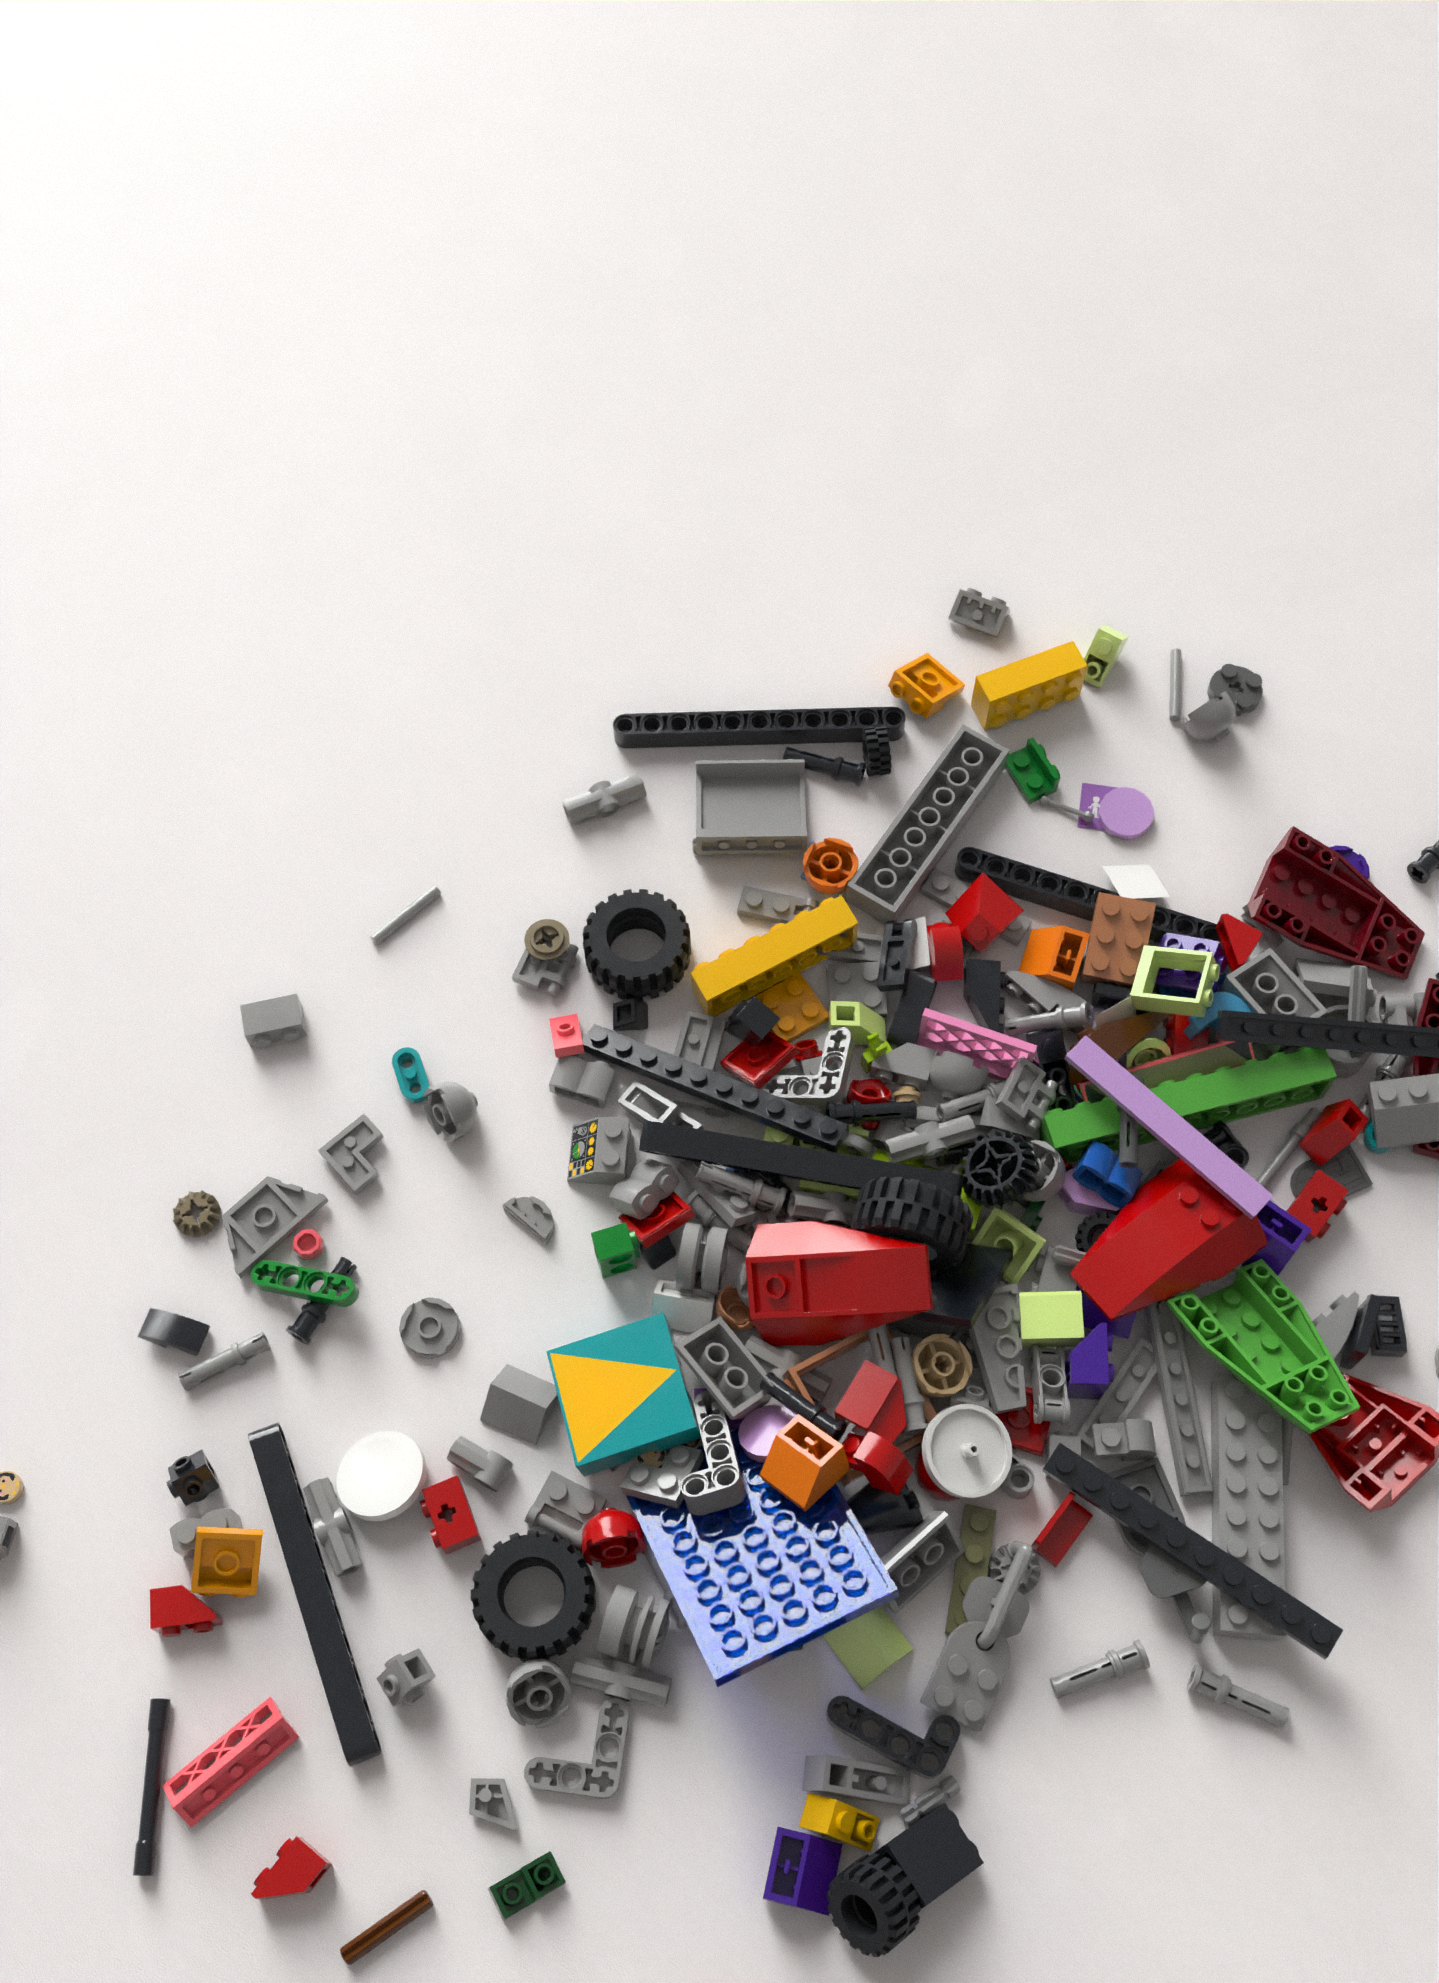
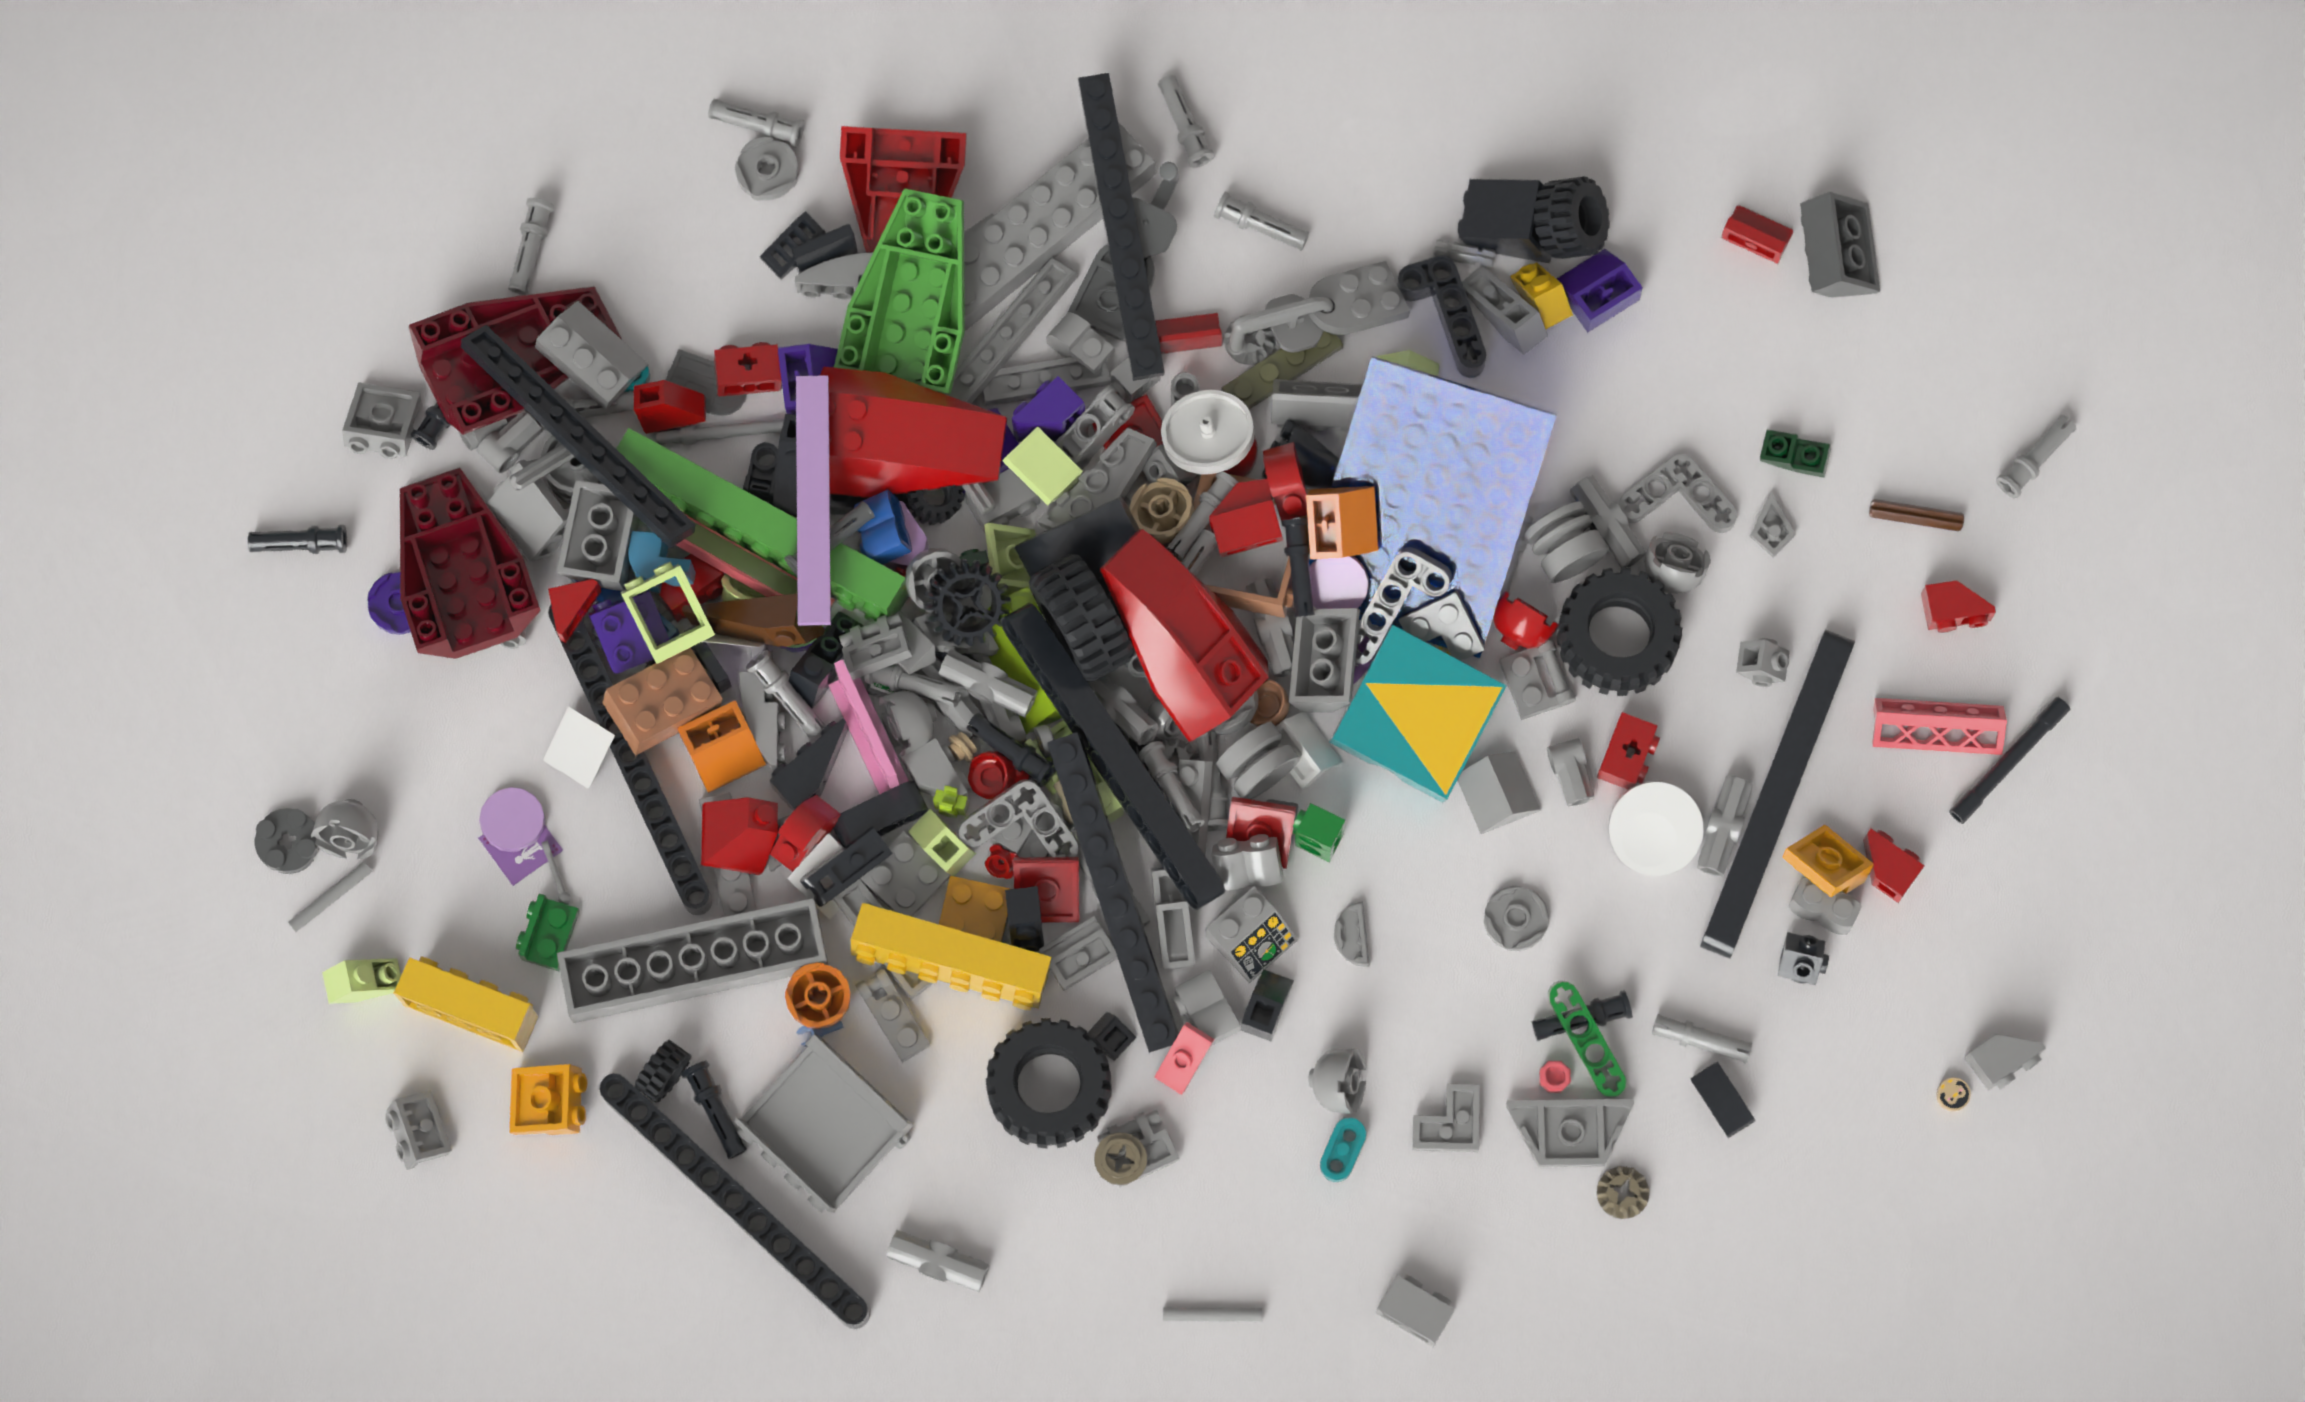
camera: 135 degrees left, 10 degrees up
(545, 1114) = (1266, 1005): none -> black slope

